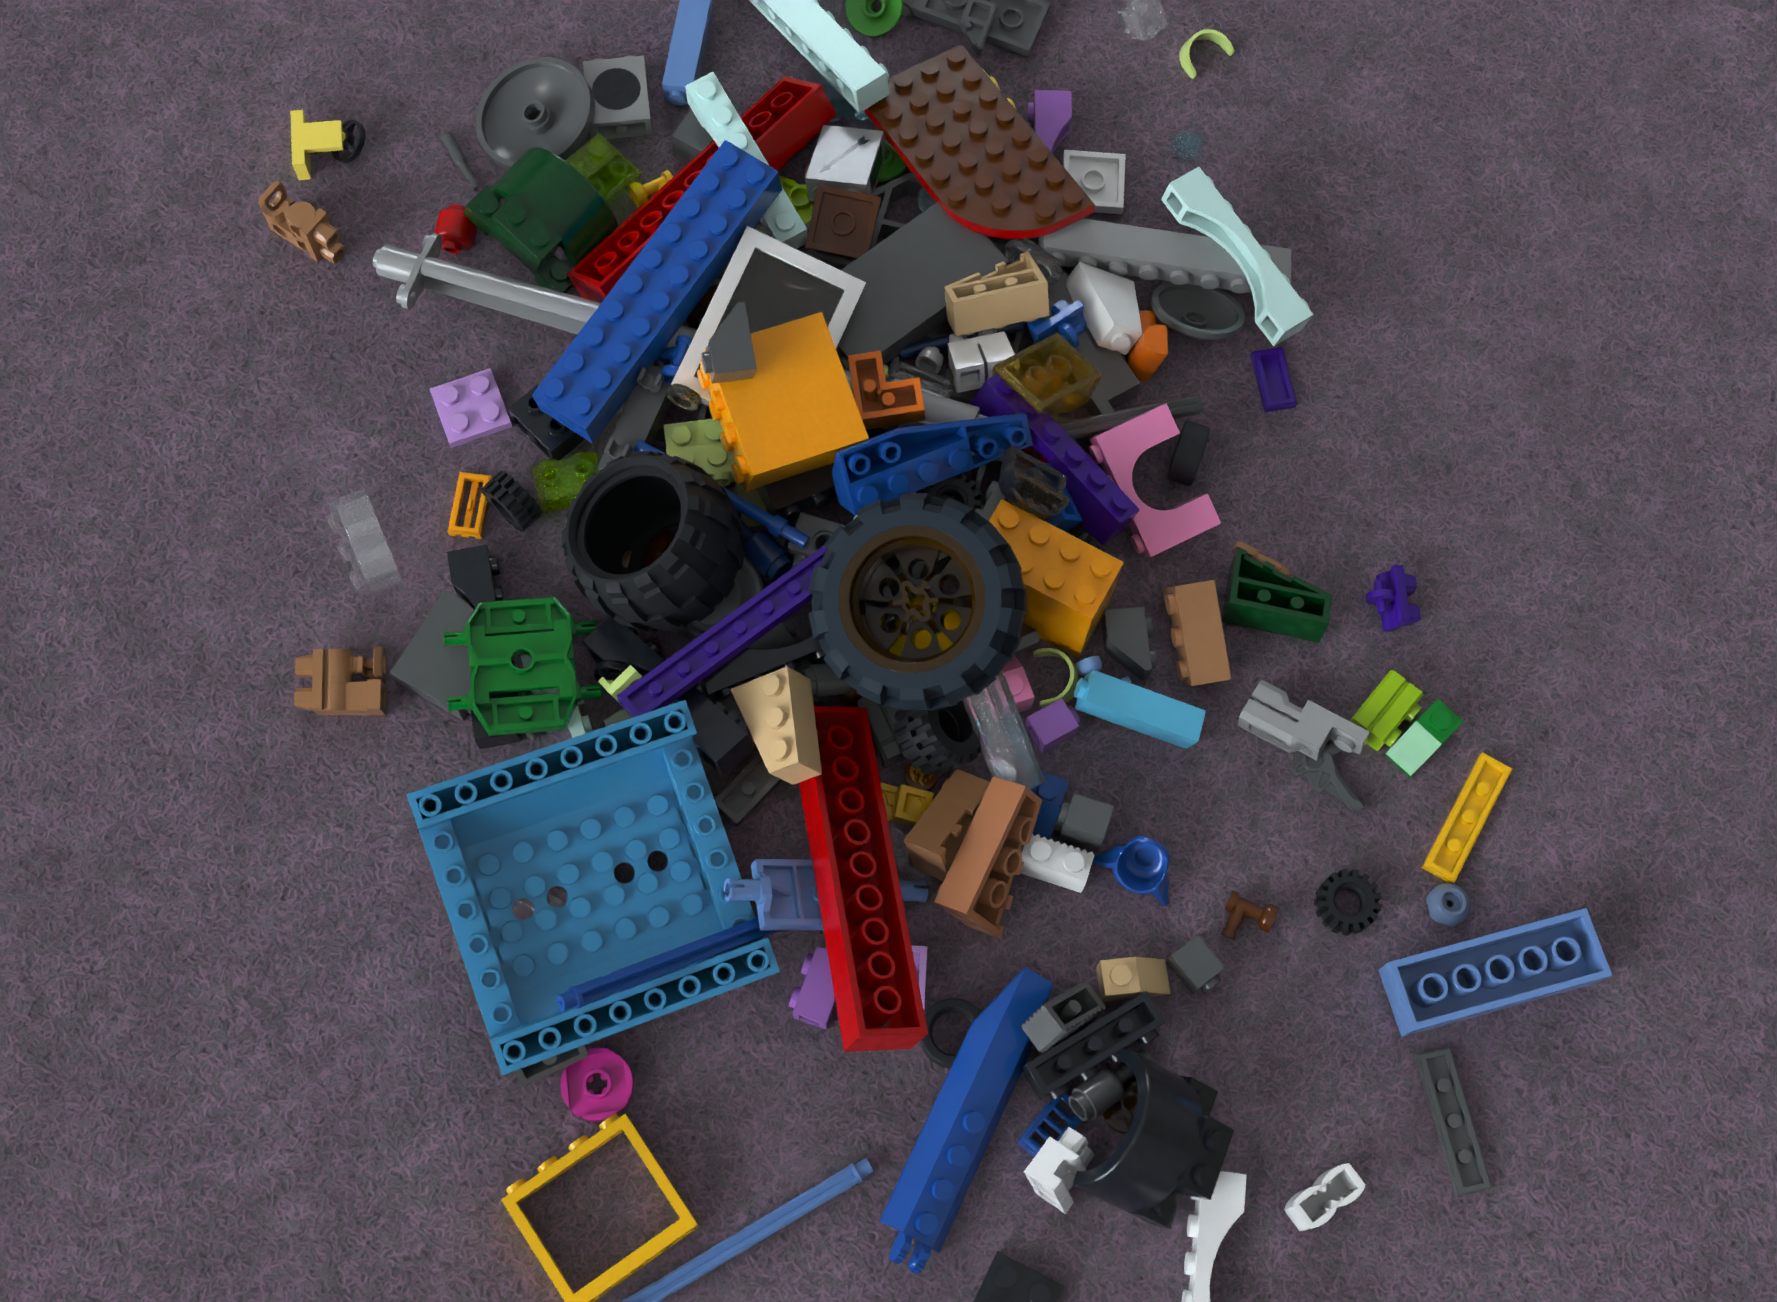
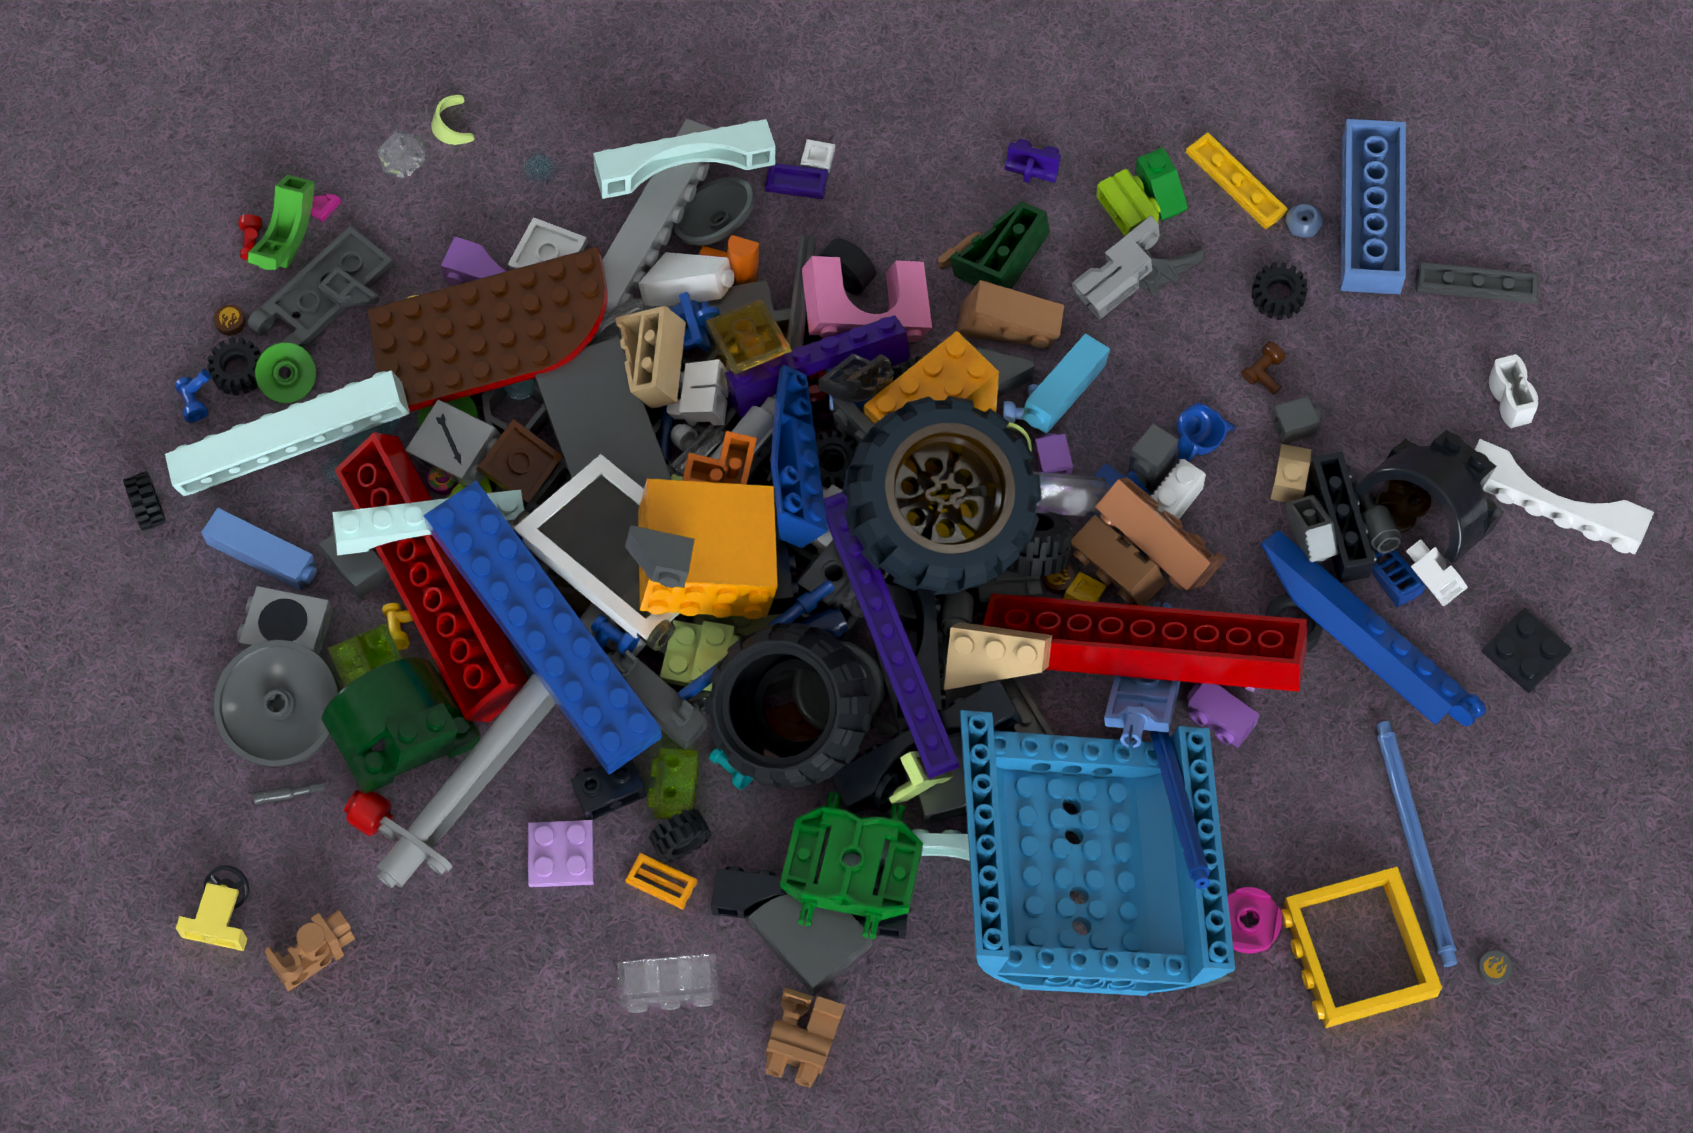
camera: 65 degrees left, 5 degrees down
(1311, 390) = (818, 155): none -> white tile

